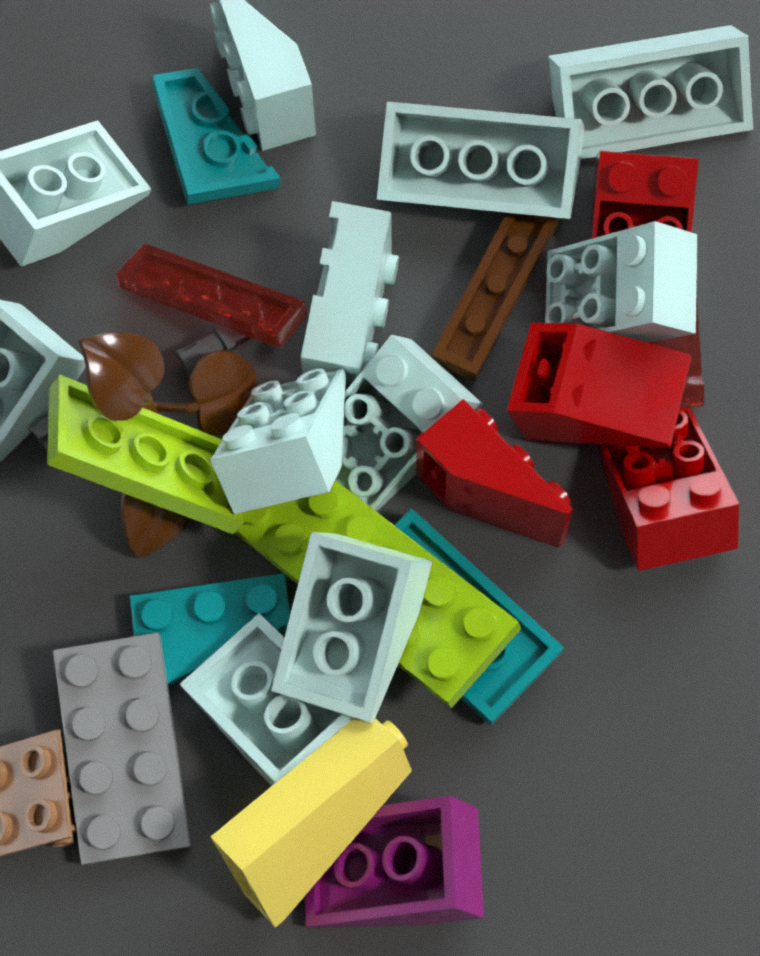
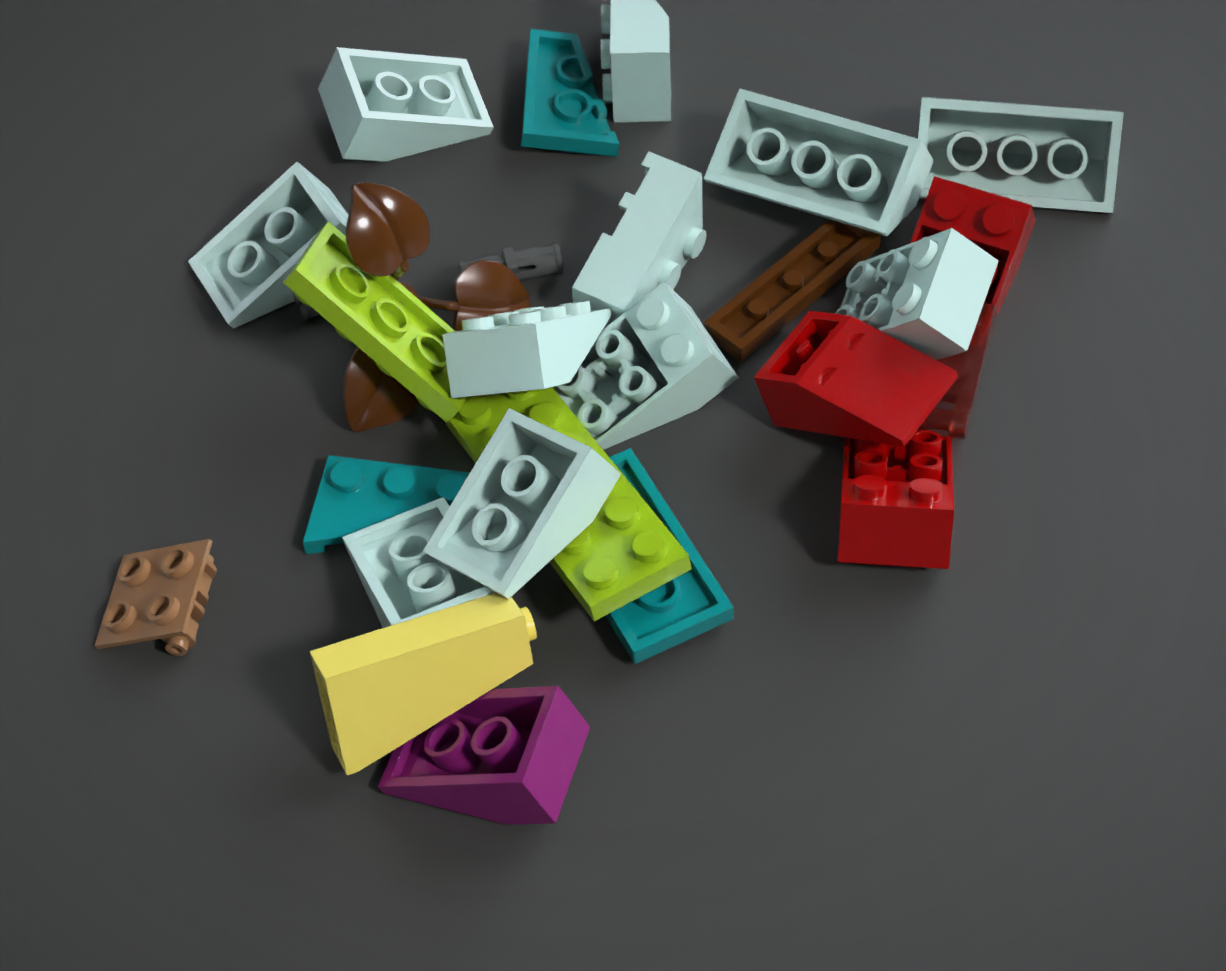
camera: 20 degrees right, 15 degrees down
(121, 749) = (265, 582): light grey plate -> none
(212, 295) = (511, 218): clear red plate -> none
(488, 479) = (713, 433): red slope -> none

